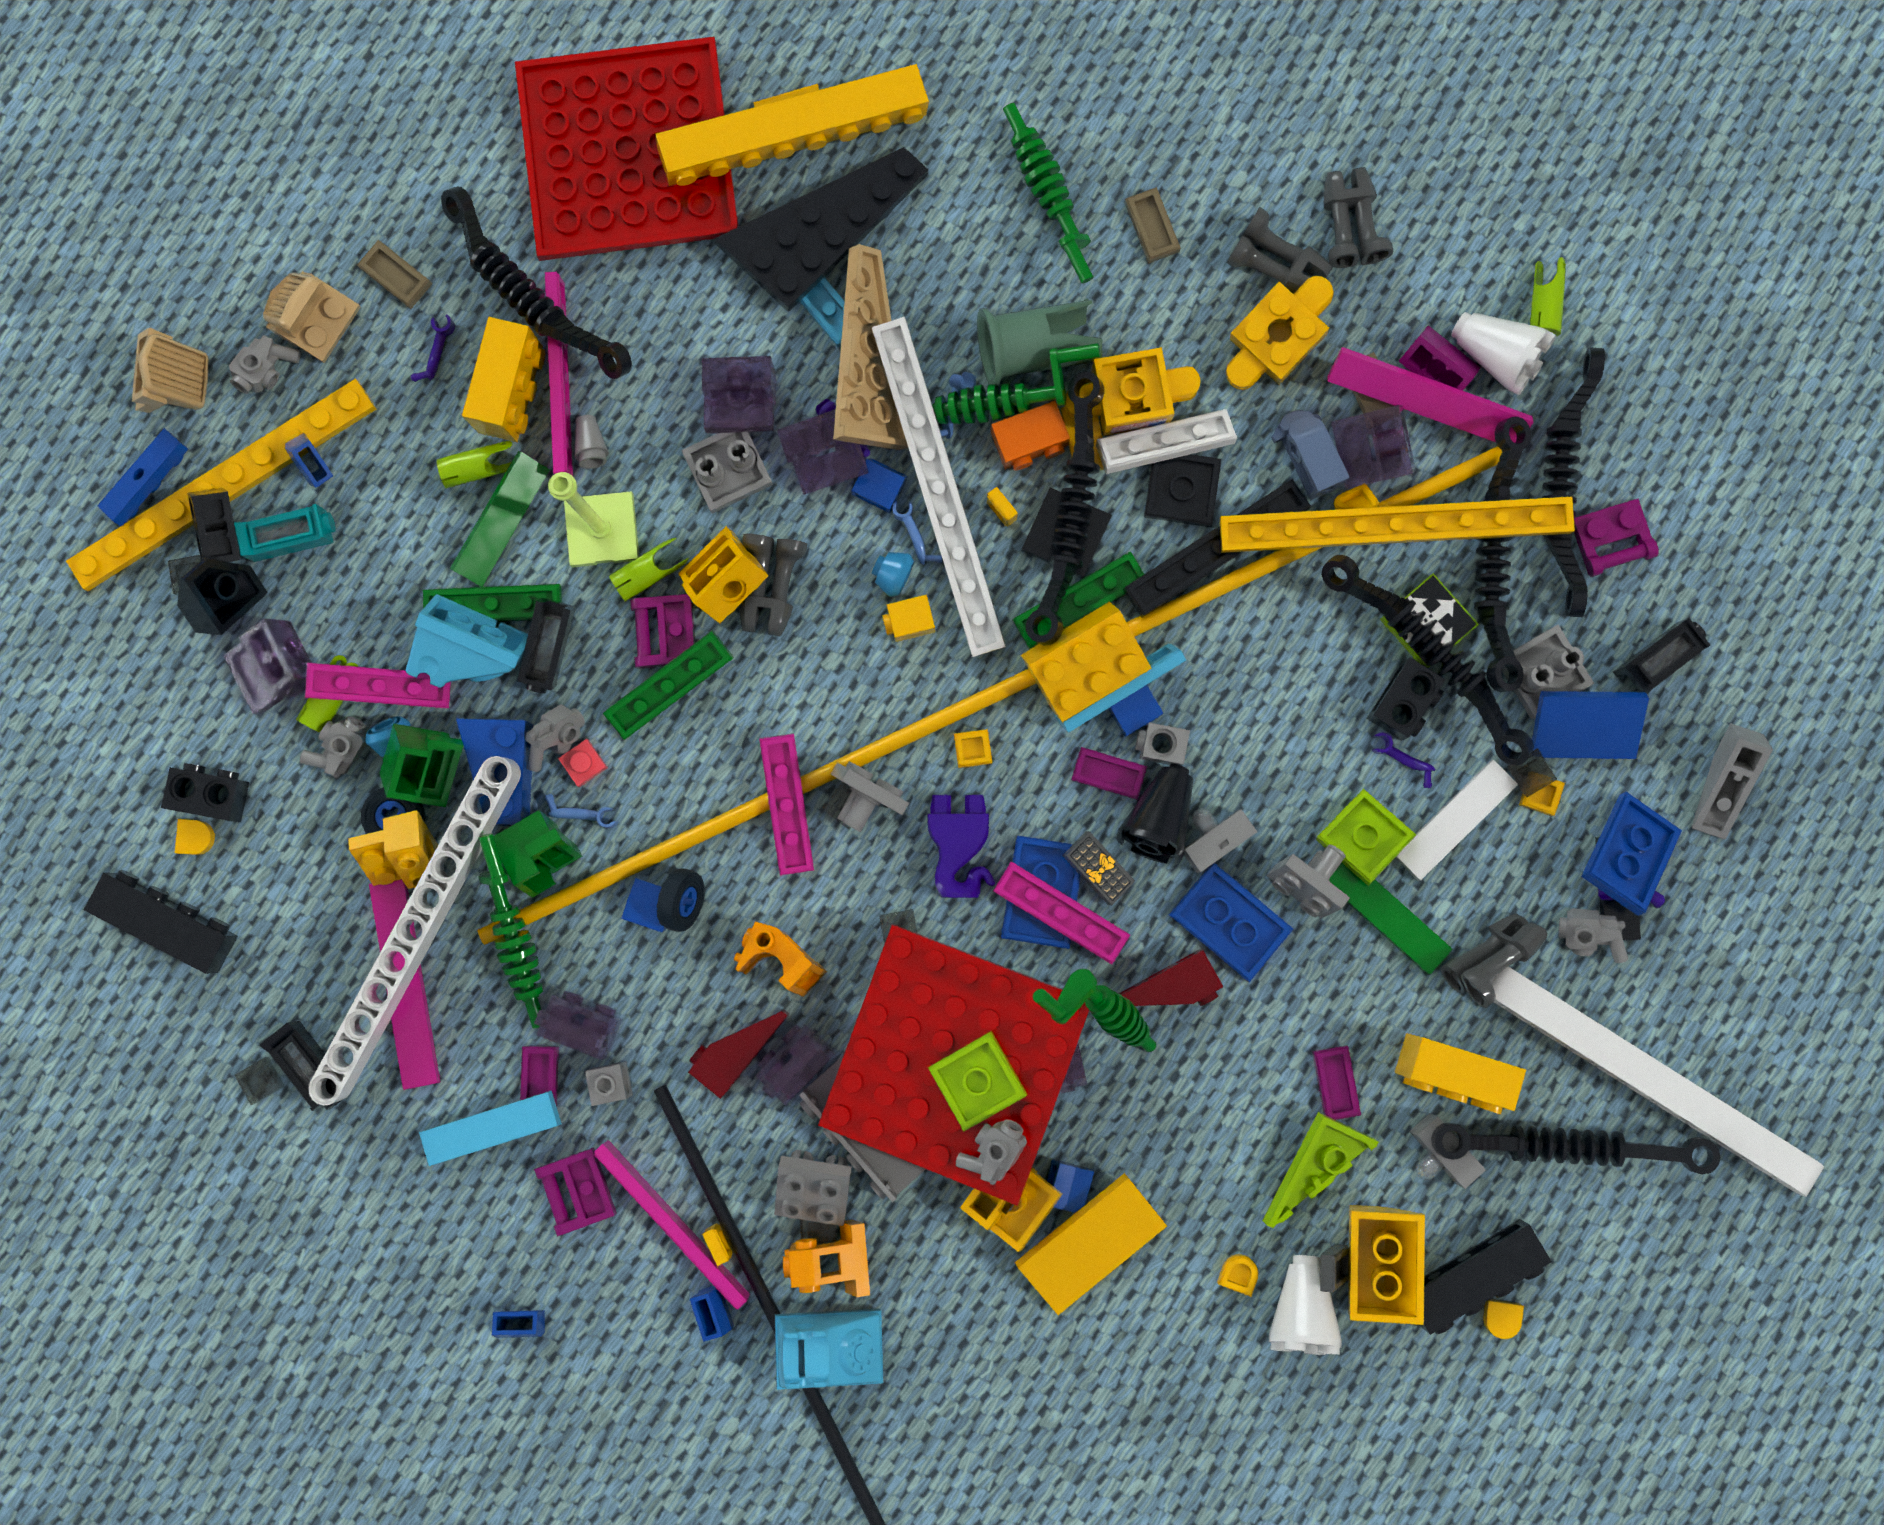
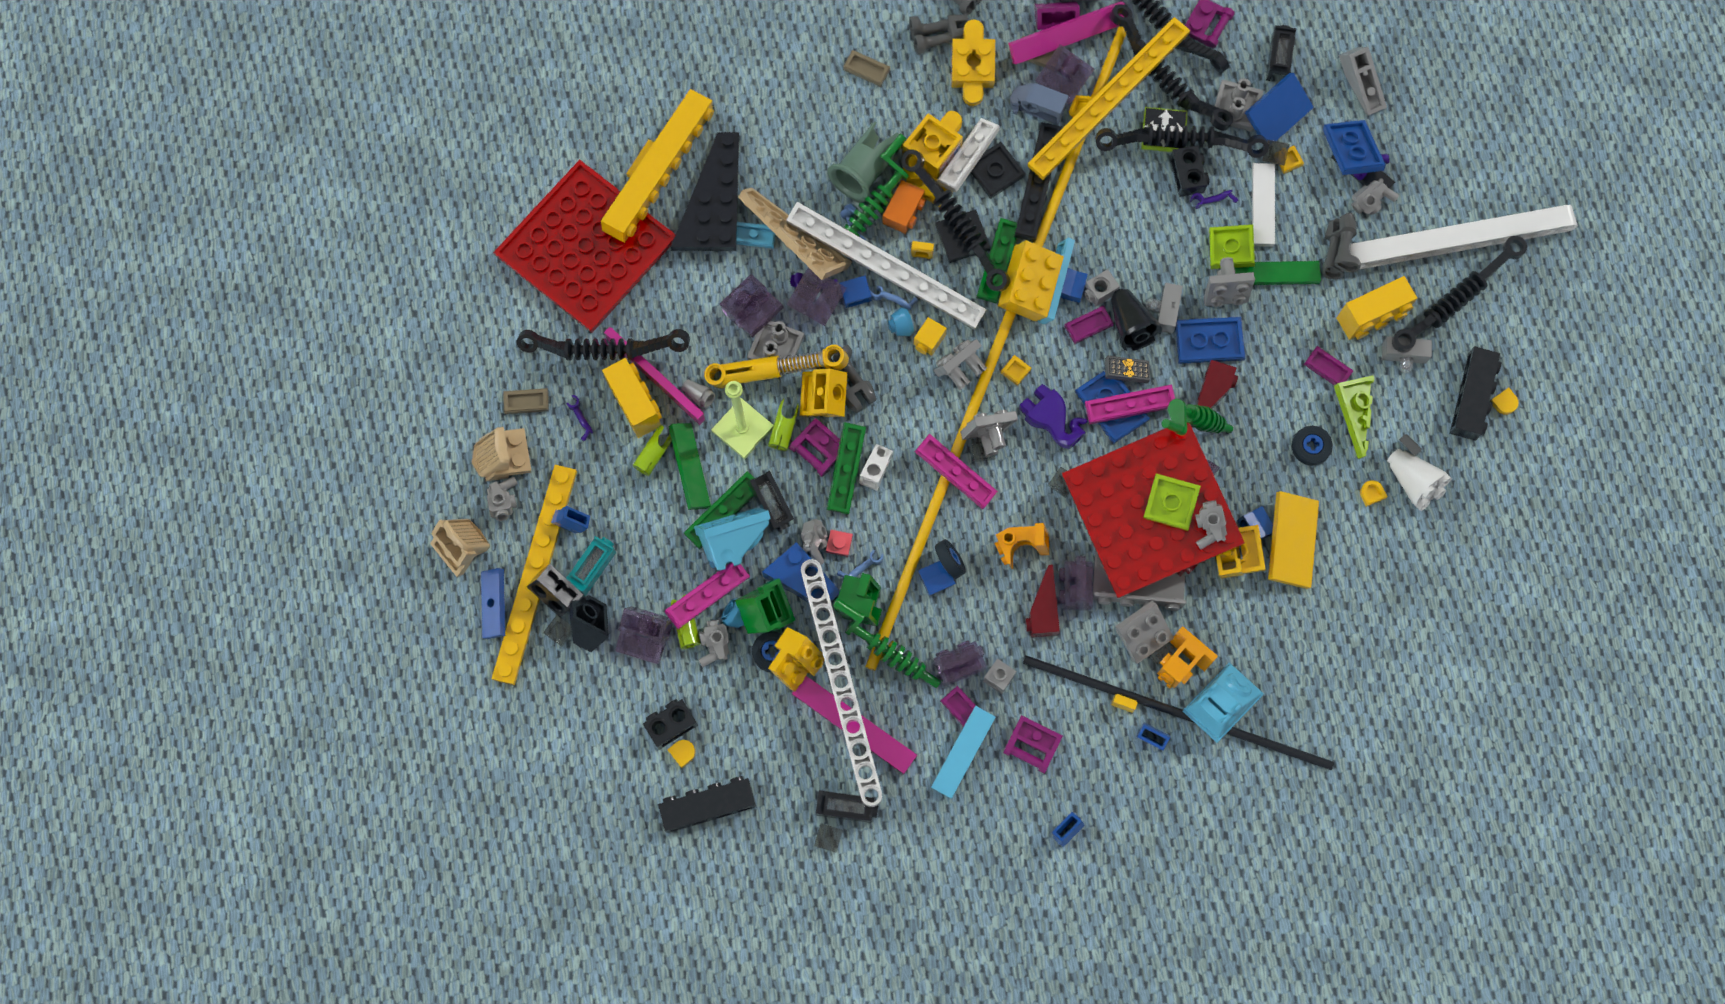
camera: 45 degrees left, 10 degrees down
(671, 1224) = (1094, 714): dark pink tile -> none
(695, 492) = (774, 366): none -> yellow piece
(705, 713) = (875, 467): none -> white leg
(897, 674) = (965, 352): none -> light grey plate
(1047, 183) = (802, 91): green piece -> none
(1206, 1155) = (1304, 453): none -> black bush
(1386, 1265) = (1431, 422): yellow slope -> none

